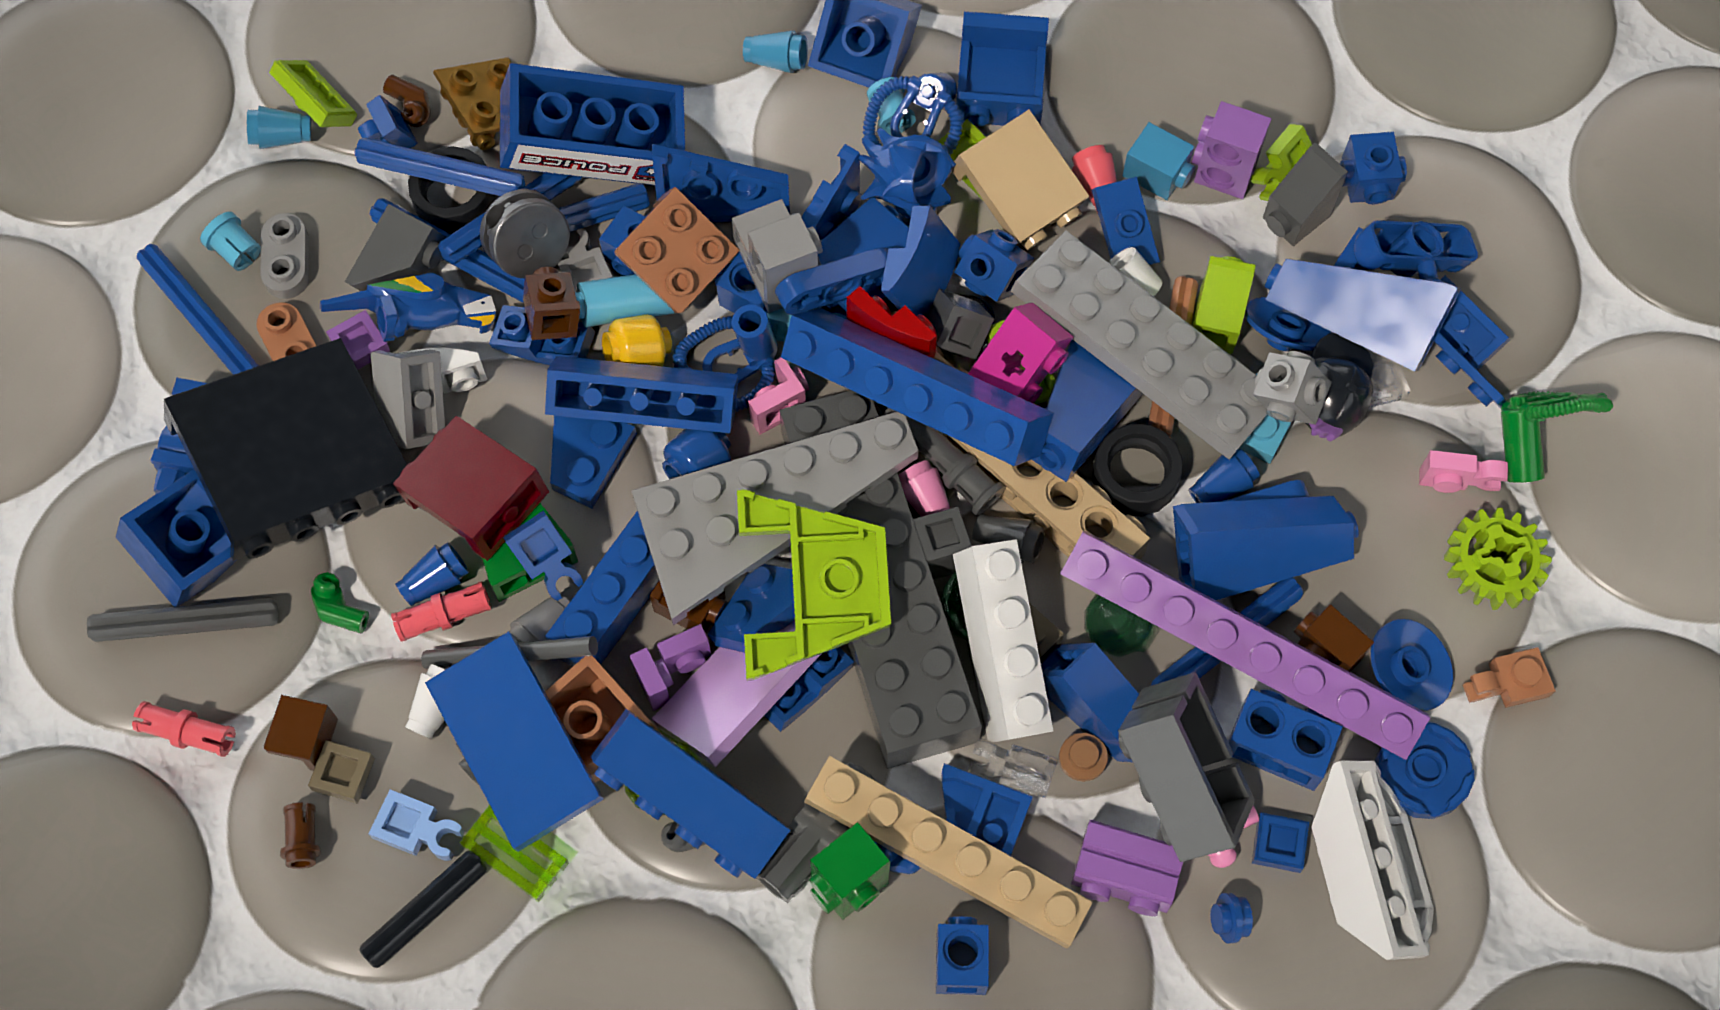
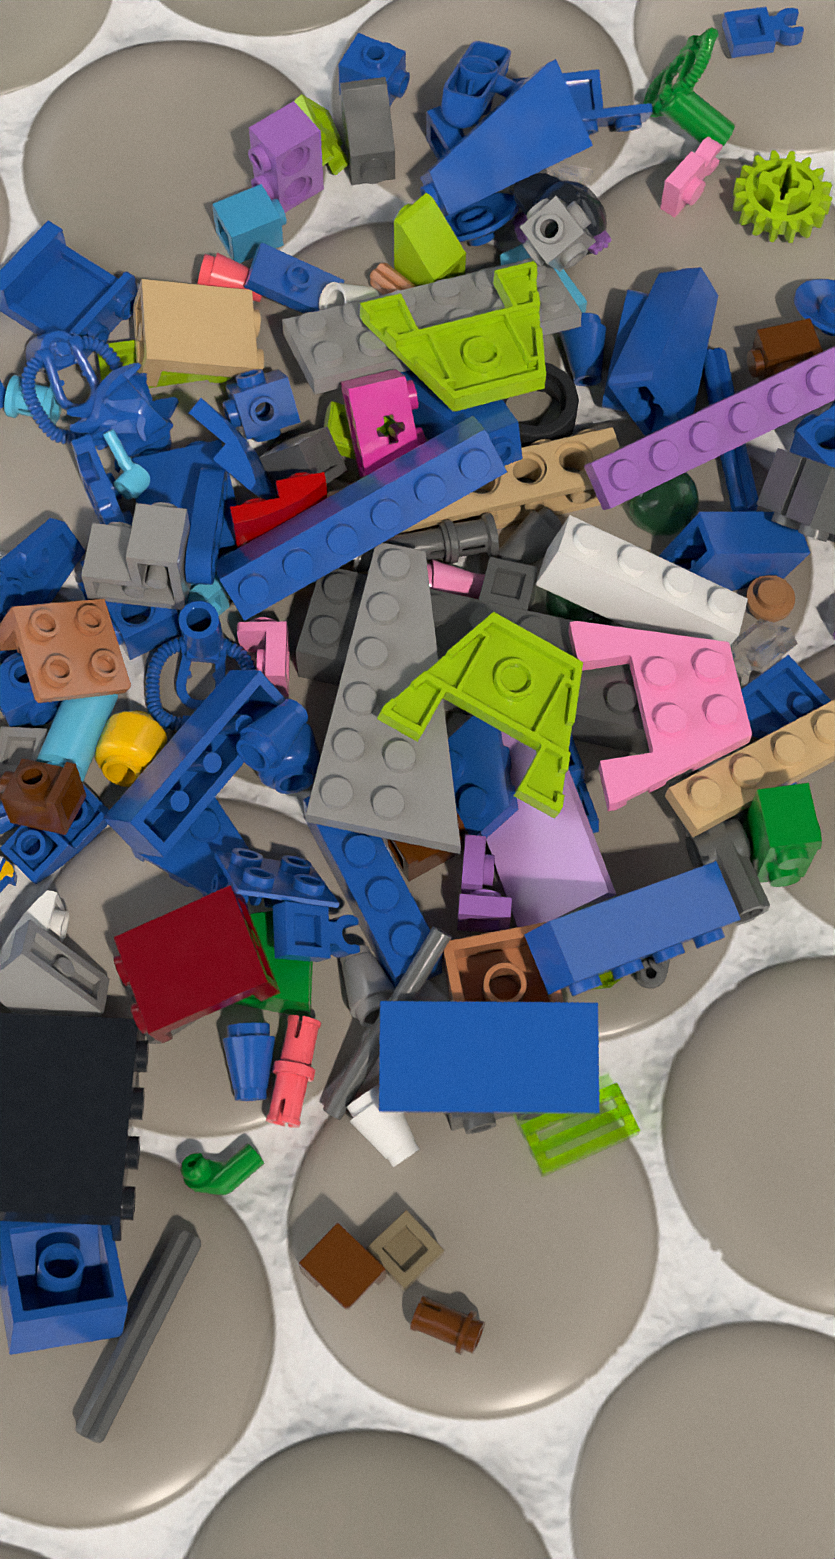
camera: 60 degrees left, 0 degrees up
(183, 729) = (263, 1389): coral pin -> none
(409, 824) = (498, 1213): light blue plate -> none
(422, 909) = (589, 1243): black axle -> none
(575, 504) = (274, 880): none -> blue hinge
(688, 431) = (271, 736): none -> blue cone
(851, 209) = (134, 477): none -> medium azure hand
(911, 727) = (684, 697): none -> bright pink wing
(1123, 390) = (474, 356): none -> lime wing
(1663, 444) = (756, 32): none -> blue plate

